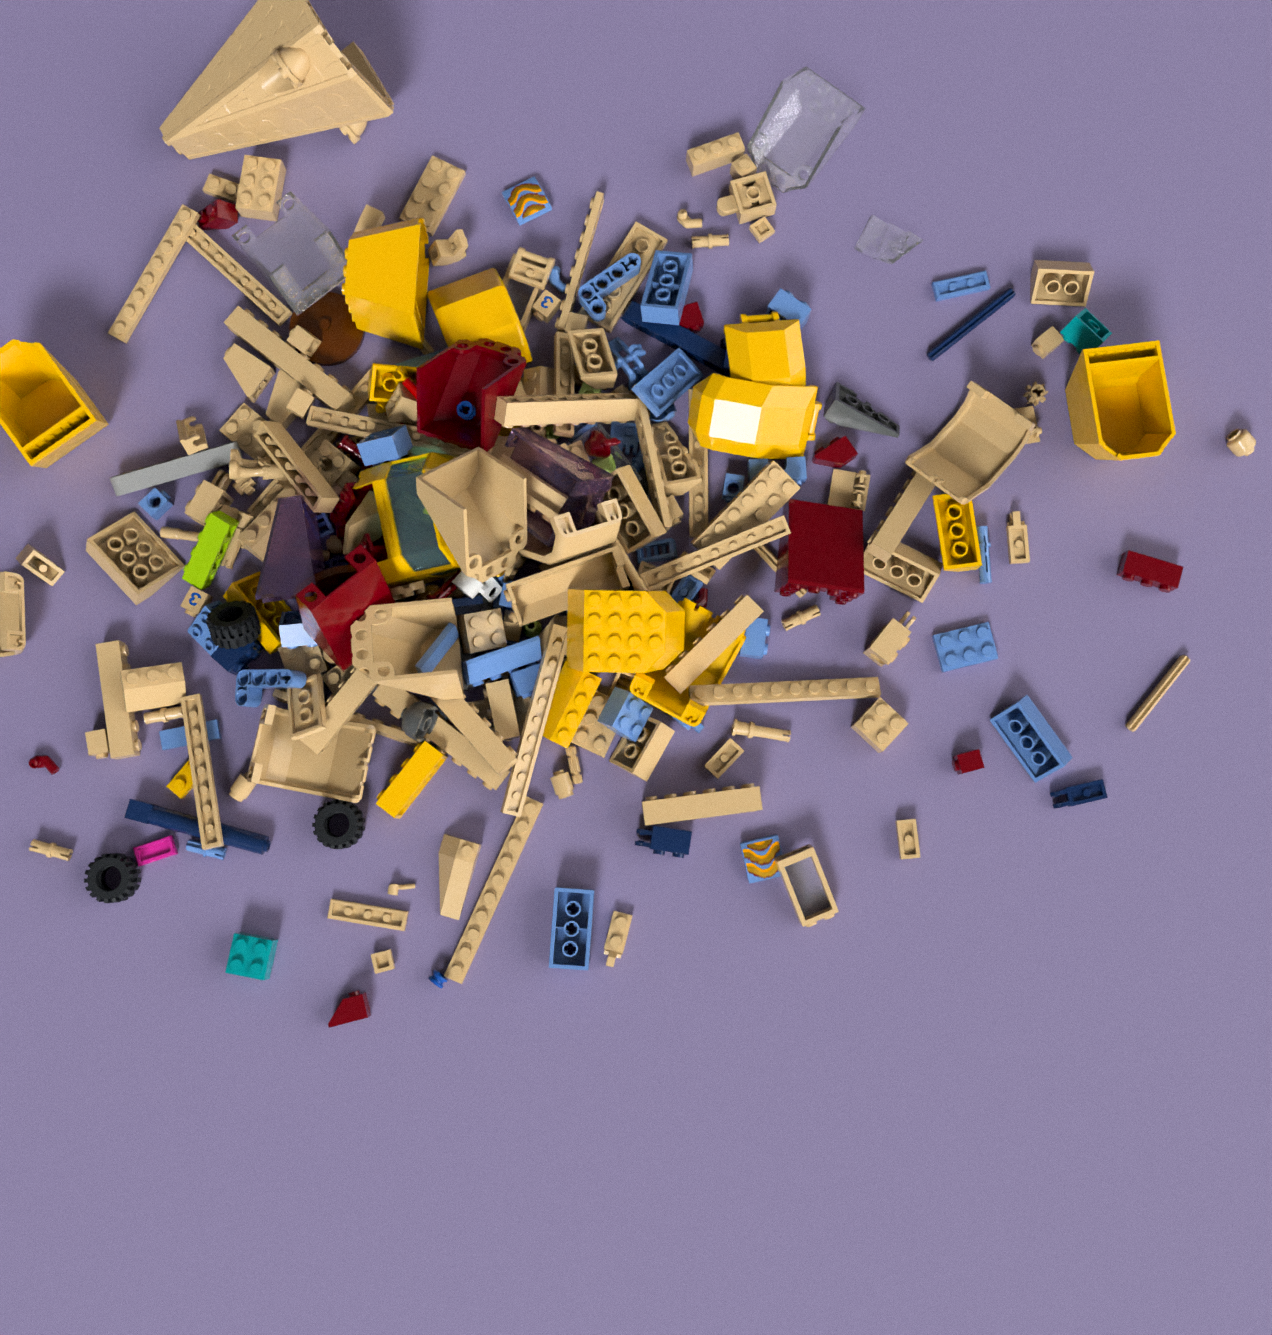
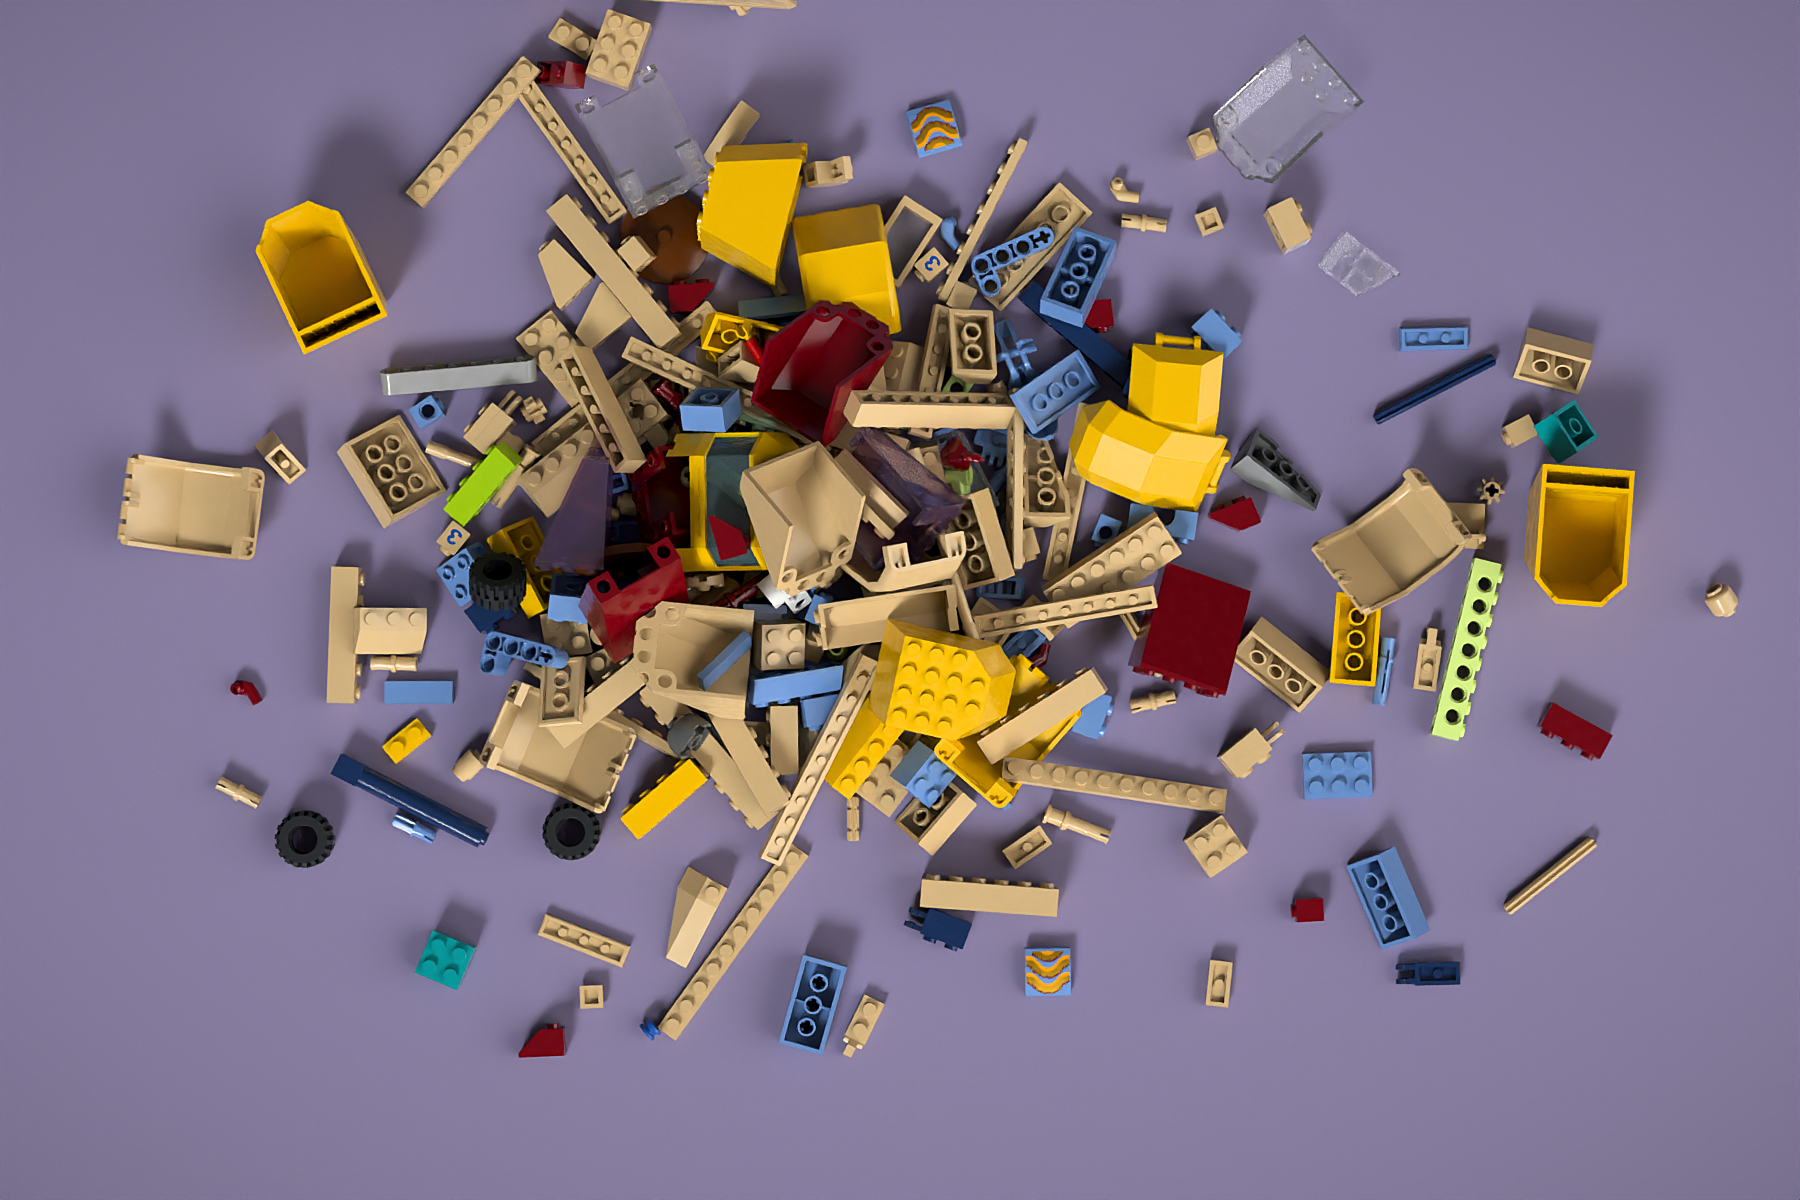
camera: 15 degrees right, 5 degrees up
(98, 743) = (314, 681): tan brick -> none
(155, 850) = (355, 817): dark pink tile -> none
(191, 437) = (484, 340): tan hinge -> none
(202, 772) = (427, 739): tan plate -> none
(244, 468) = (535, 393): tan piece -> none
(300, 402) = (620, 330): tan brick -> none
(354, 368) = (686, 297): none -> dark red slope
(363, 521) = (670, 496): tan slope -> none
(394, 888) = (618, 917): tan hand -> none
(417, 542) = (728, 539): none -> dark red slope
(433, 193) = (821, 98): tan plate -> none
(460, 408) = (807, 391): blue bush -> none
(529, 273) = (917, 225): tan plate -> none
(562, 784) = (835, 838): tan brick -> none
(715, 154) = (1172, 117): tan brick -> none
(743, 193) = (1200, 182): tan brick -> none
(806, 885) = (1089, 1012): window -> none
(826, 216) = (1288, 225): none -> tan brick
(849, 489) = (1243, 561): tan hinge -> none
(900, 517) = (1290, 611): tan brick -> none
(1039, 588) = (1478, 569): none -> yellowish green brick

